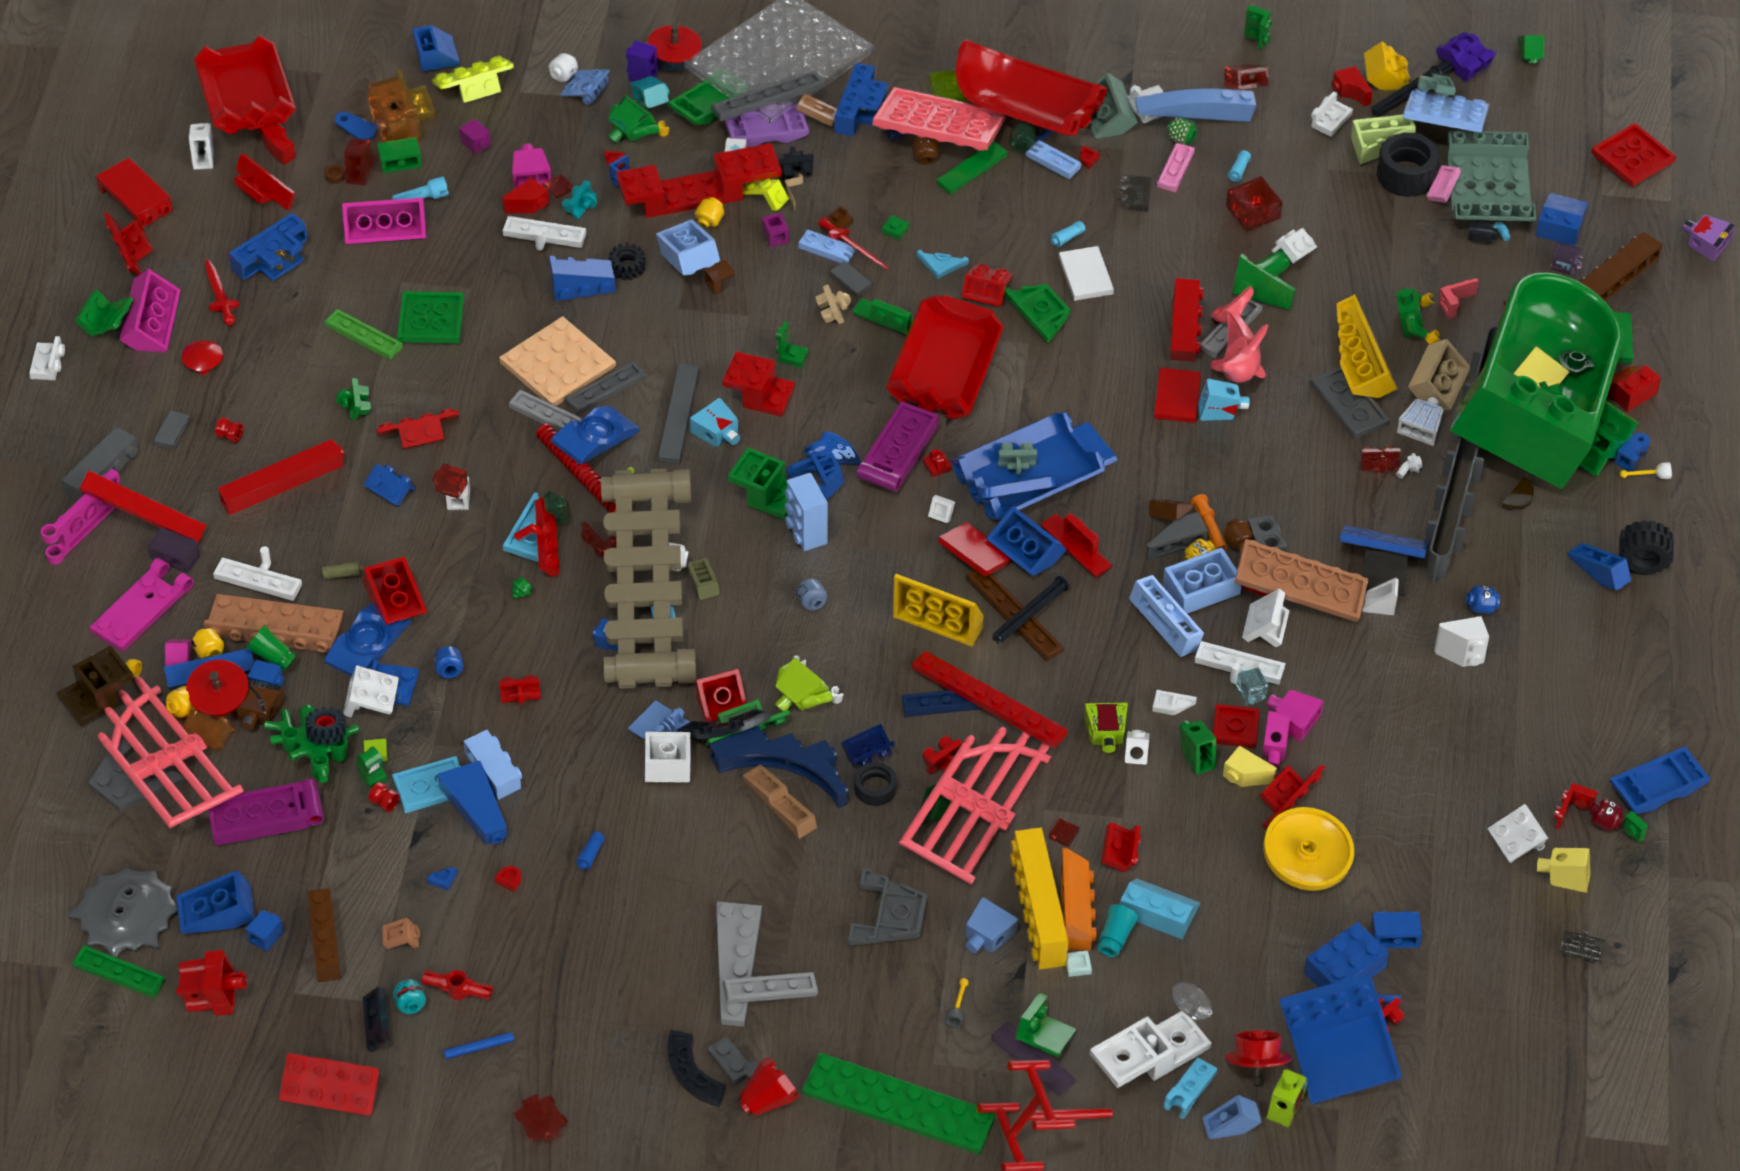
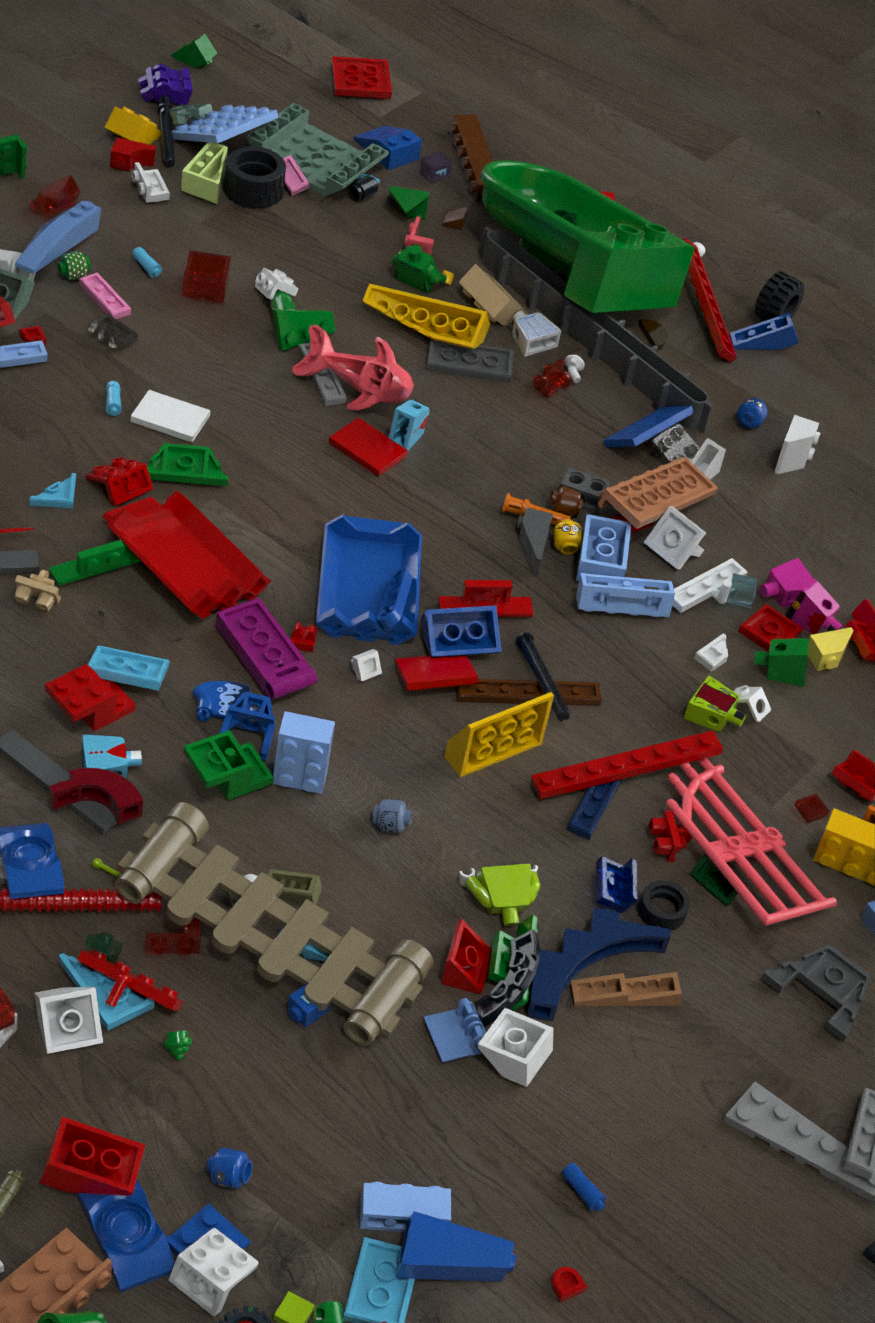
camera: 65 degrees left, 5 degrees down
(489, 523) = (68, 1018): none -> white slope
(519, 689) = (323, 1125): red hips -> none
(680, 424) = (98, 786): none -> dark red arch
(789, 353) = (62, 653): green bracket -> none
(809, 388) = (129, 667): none -> medium azure tile
(1017, 458) = (358, 580): sand green hips -> none
(1168, 509) = (502, 524): reddish brown slope -> none
(1185, 319) = (295, 388): red wedge -> none
(1497, 266) = (410, 201): none -> green slope
(1598, 505) = (710, 307): none -> red plate
(1709, 235) = (483, 94): medium lavender torso -> none

